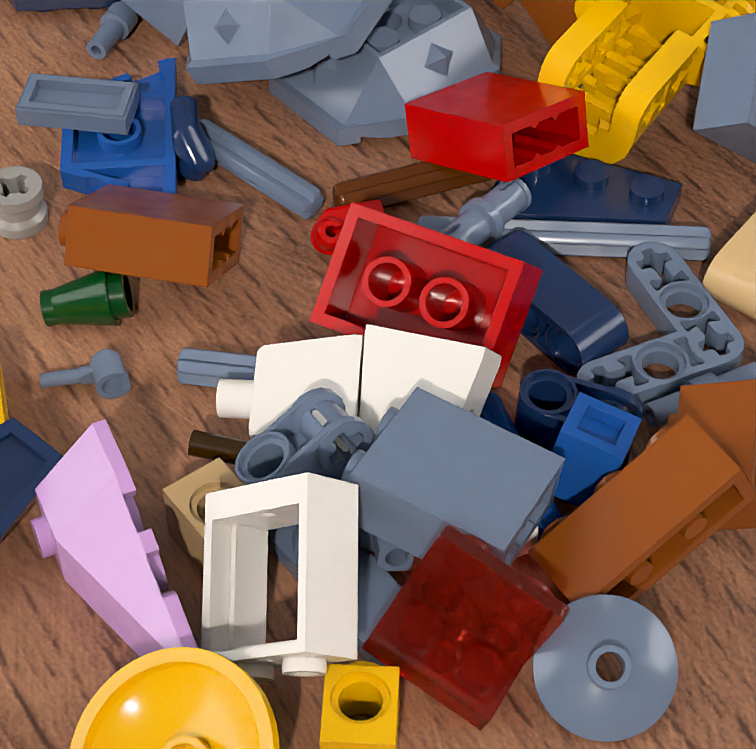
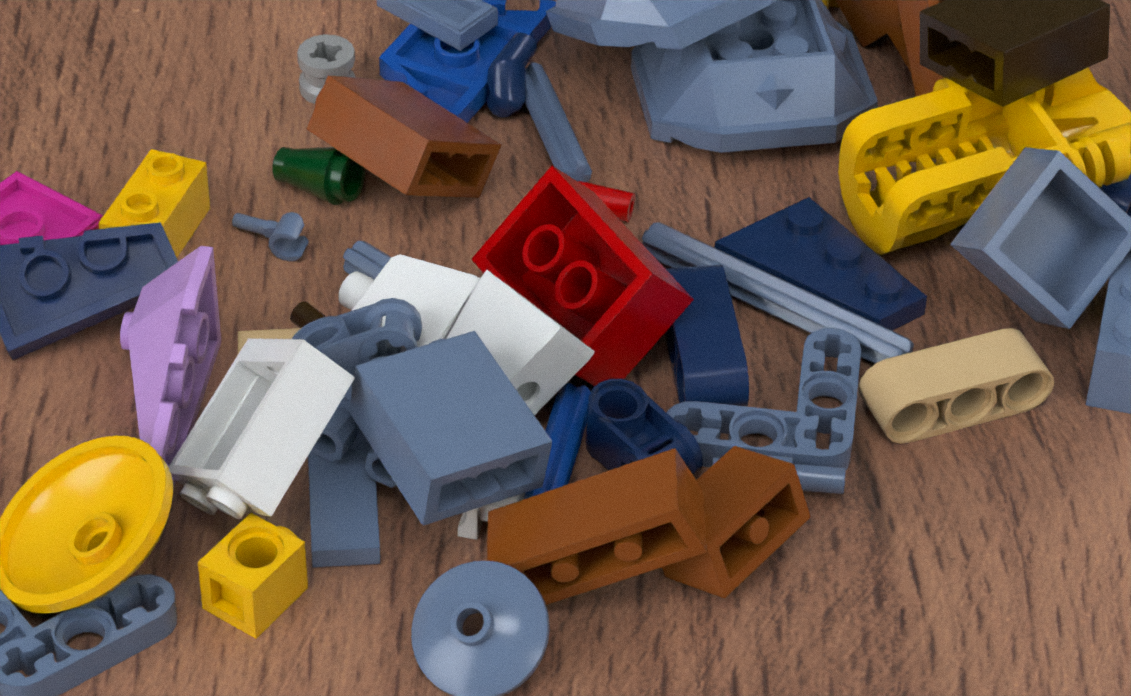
camera: 30 degrees right, 5 degrees down
(403, 184) = (690, 193): reddish brown axle -> none
(465, 626) = (378, 540): clear red bracket -> none
(483, 219) = (698, 242): sand blue pin -> none
(497, 125) = (778, 169): red brick -> none
(593, 445) = (602, 444): blue brick -> none

